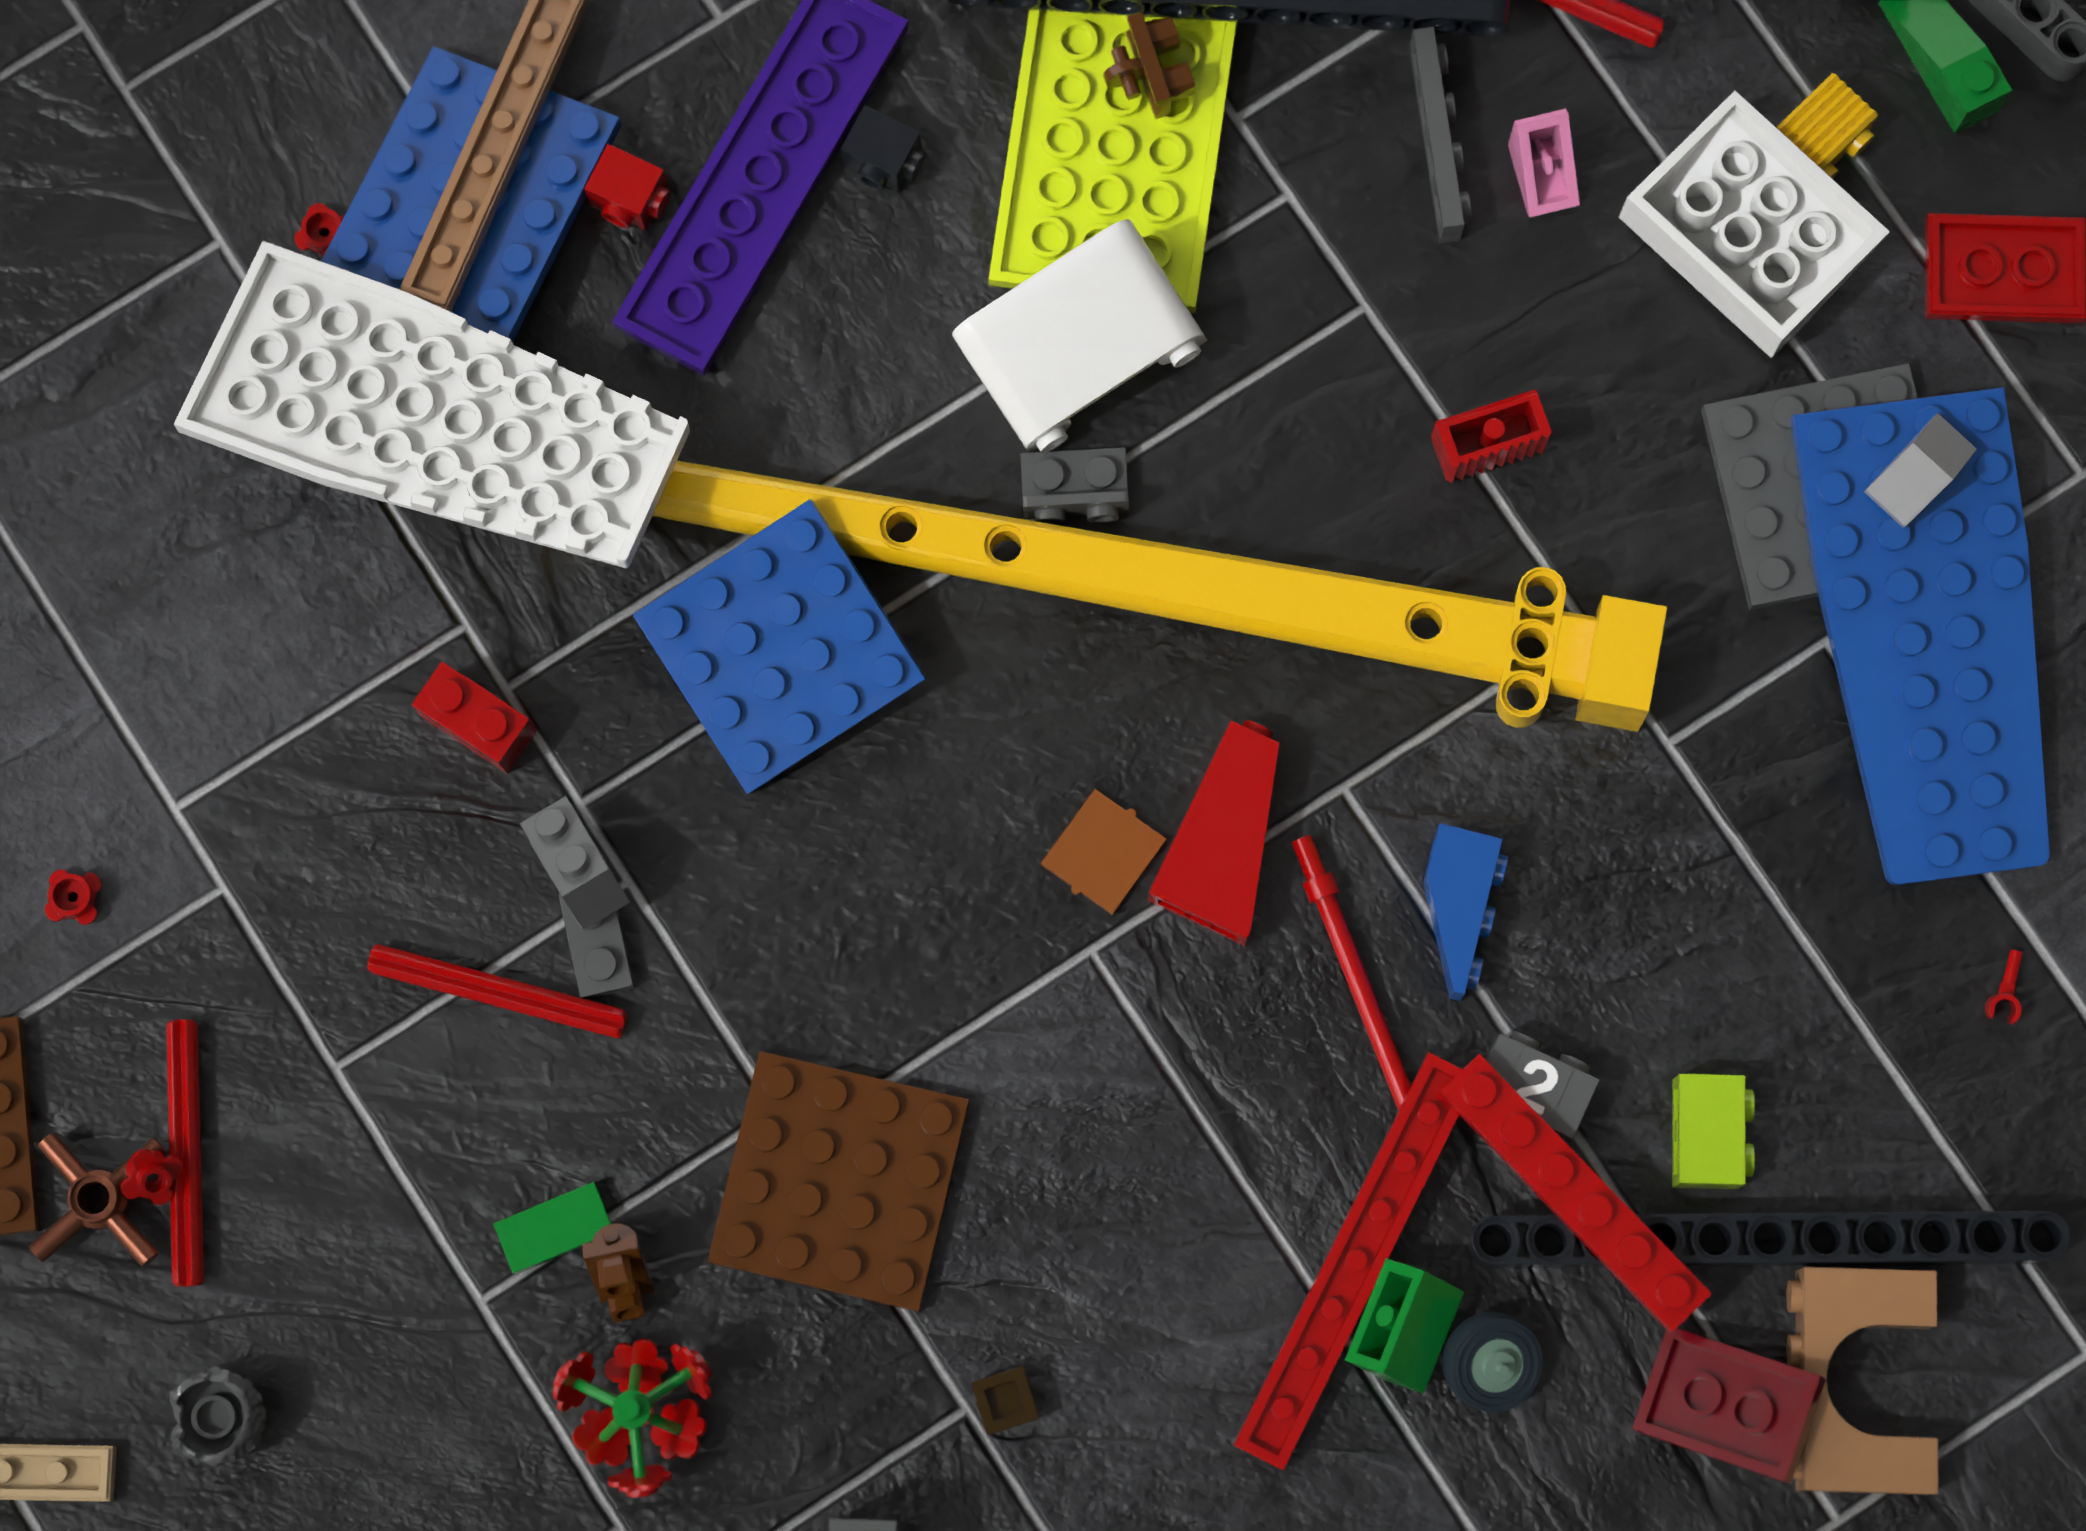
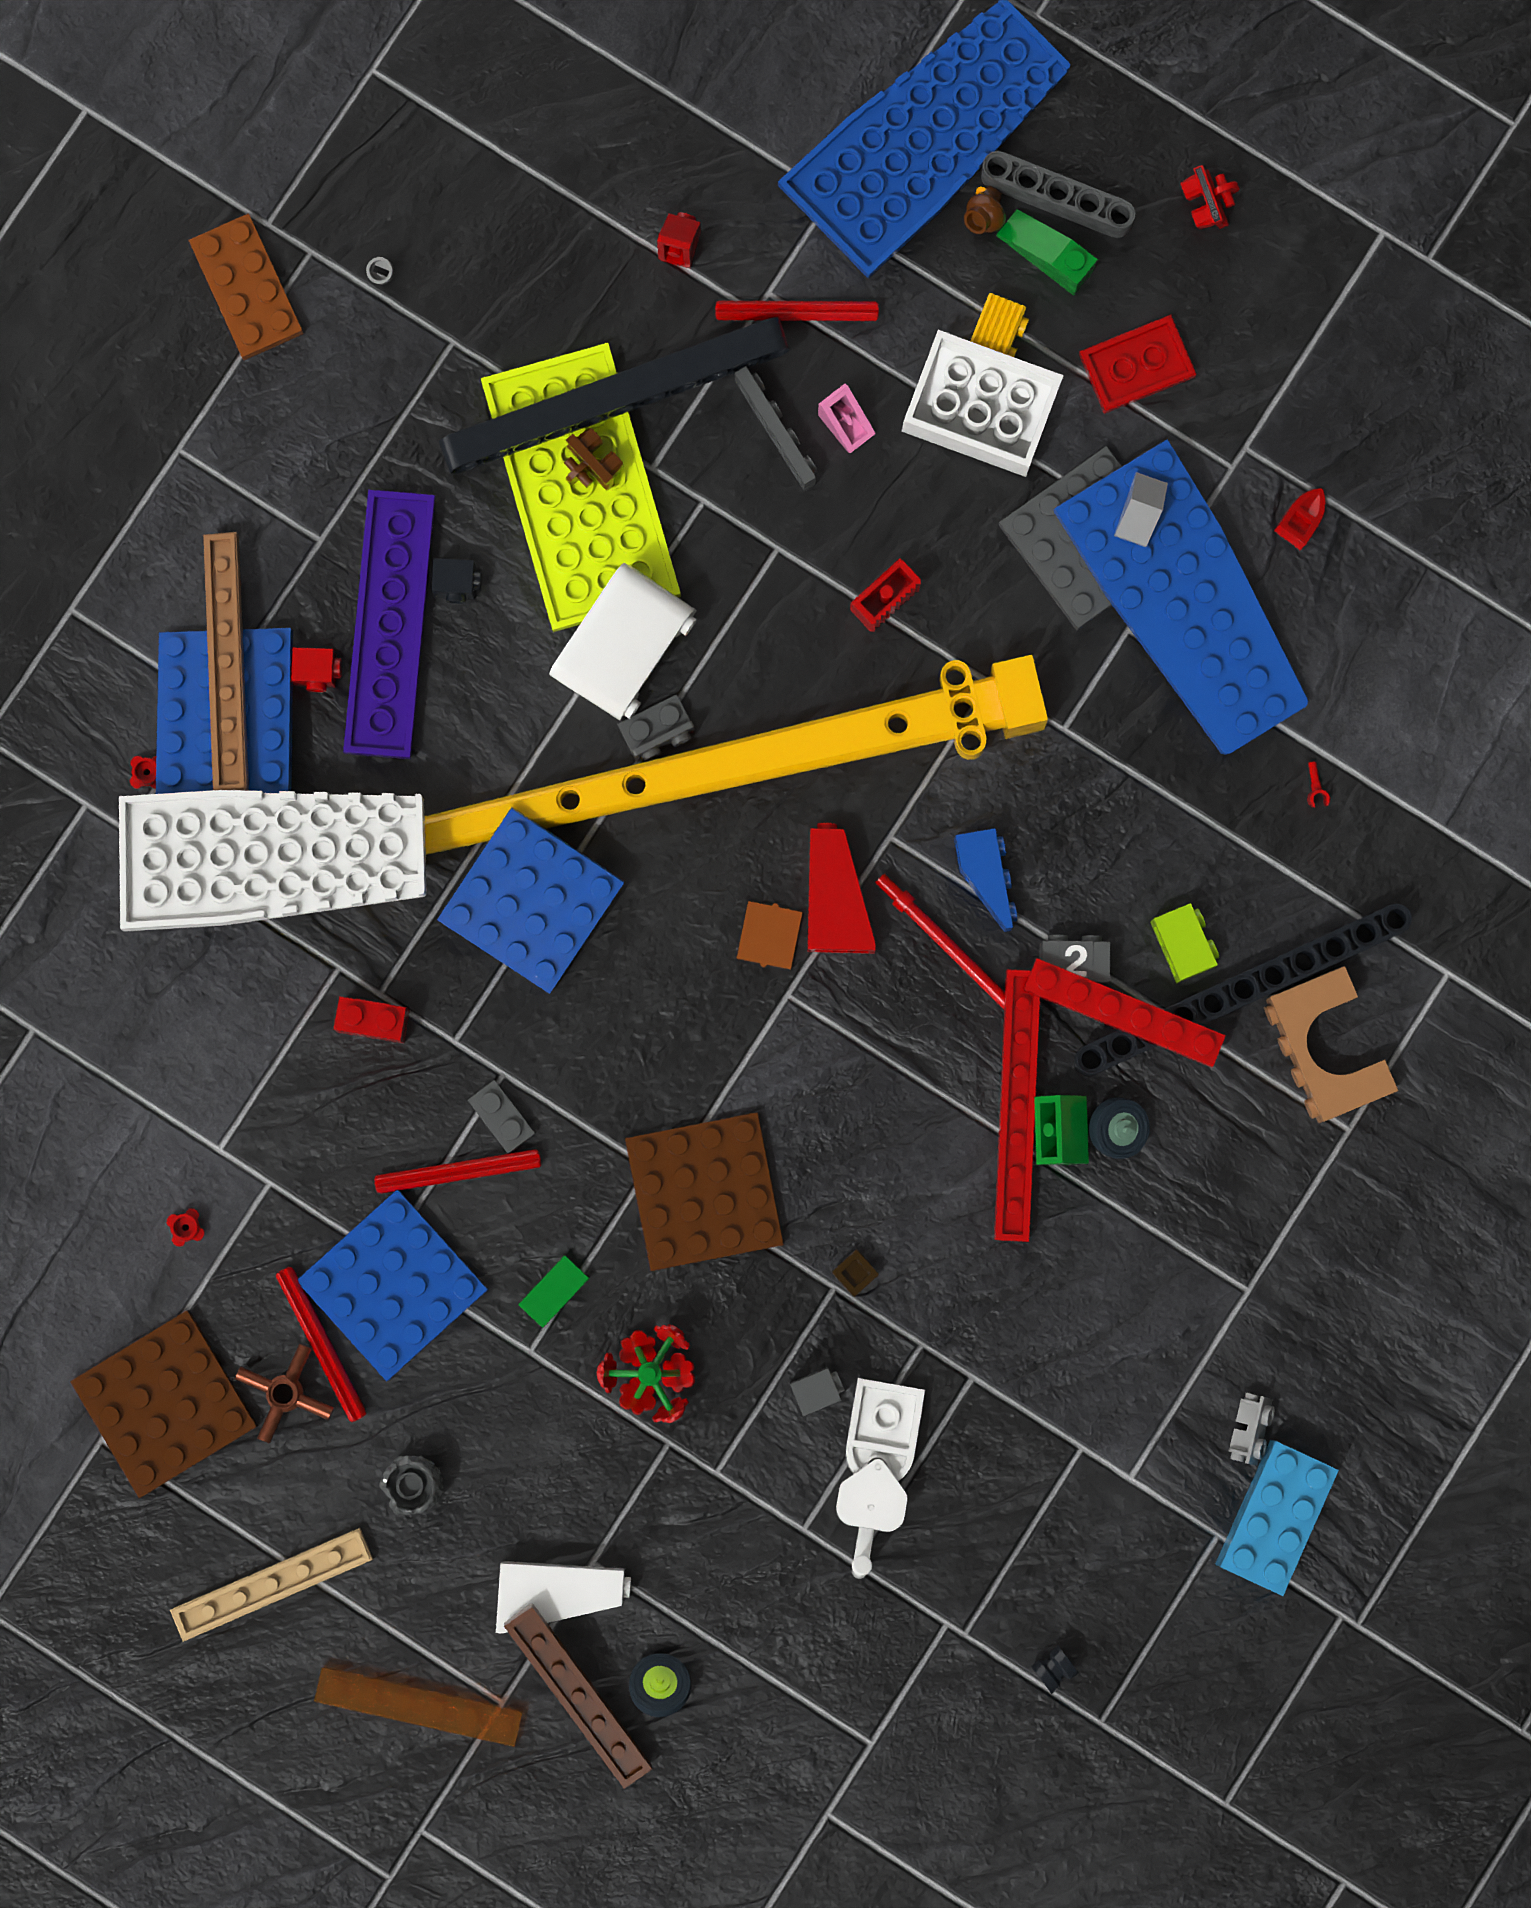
camera: 30 degrees left, 5 degrees up
(145, 1163) = (302, 1365): red plate -> none
(327, 1114) = (392, 1285): none -> blue plate
(574, 863) = (470, 1078): dark grey brick -> none
(619, 1271) = (603, 1299): reddish brown hips -> none
(1729, 1404) = (1261, 1092): dark red plate -> none

